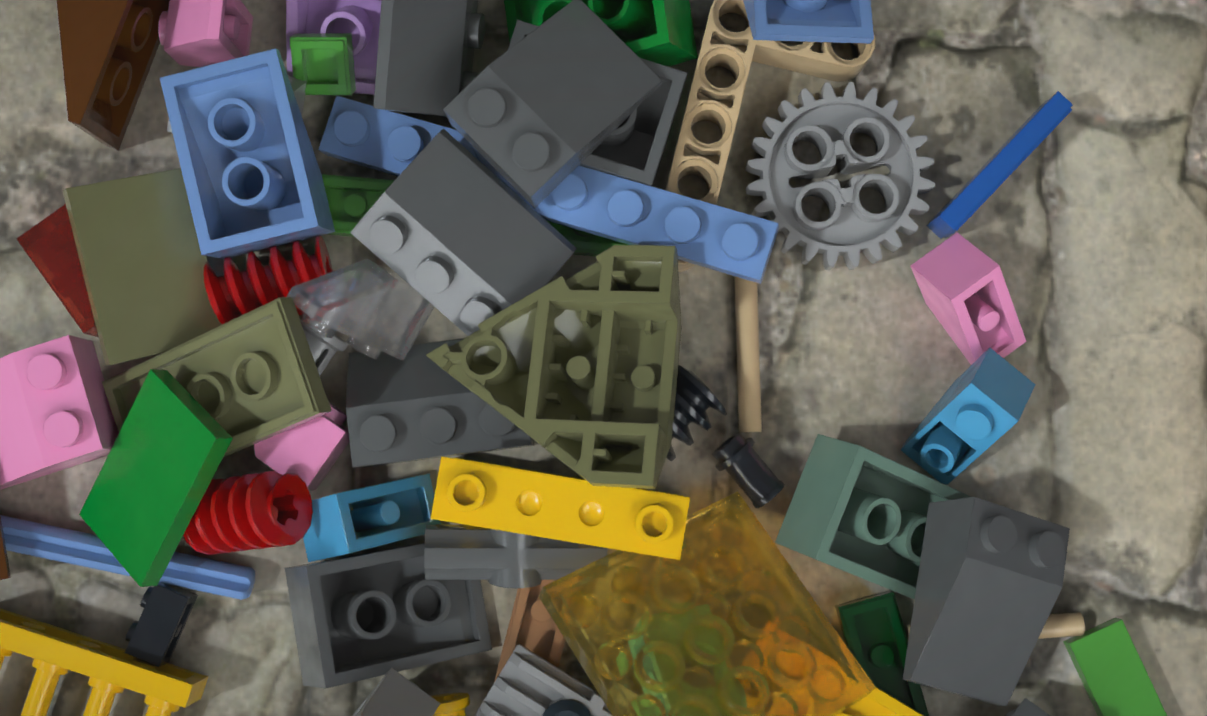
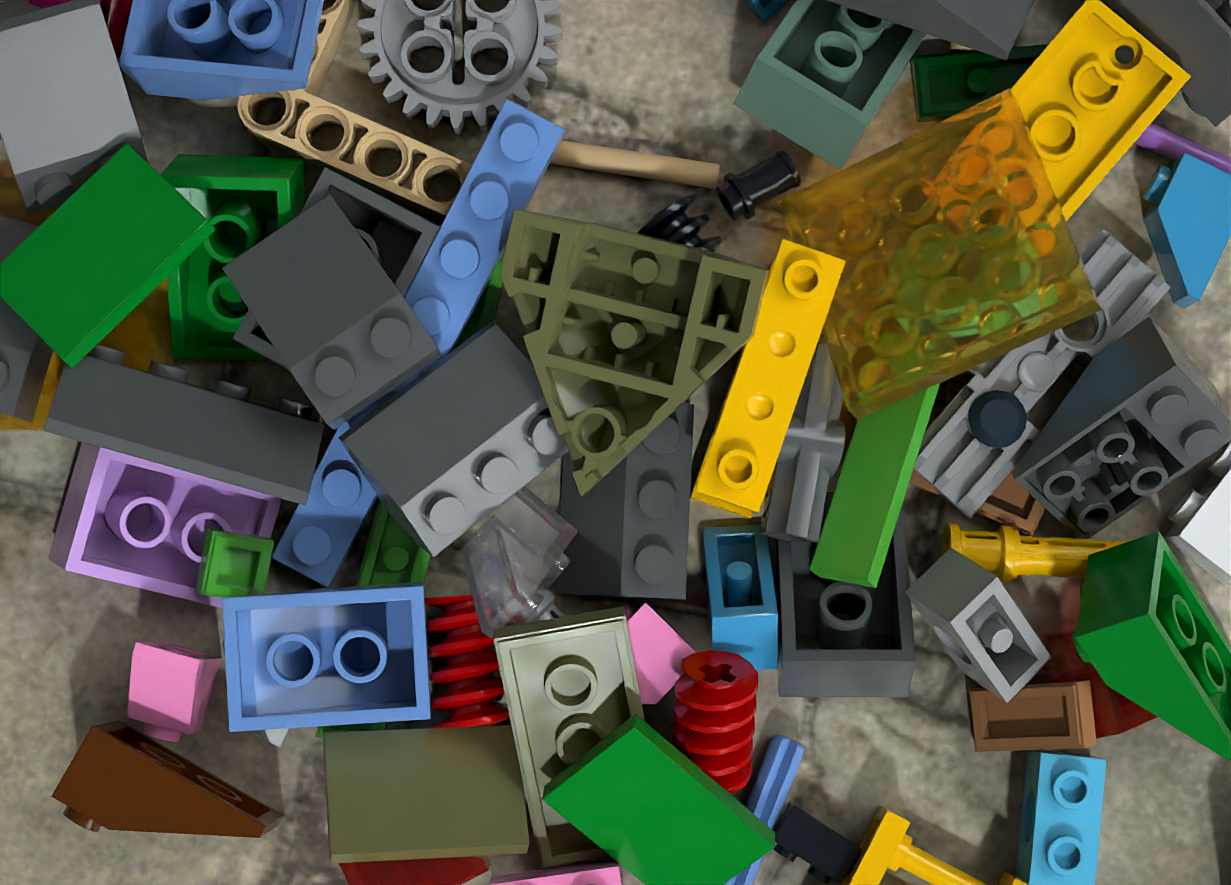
camera: 80 degrees left, 0 degrees up
(476, 621) = (872, 491): none -> bright green tile

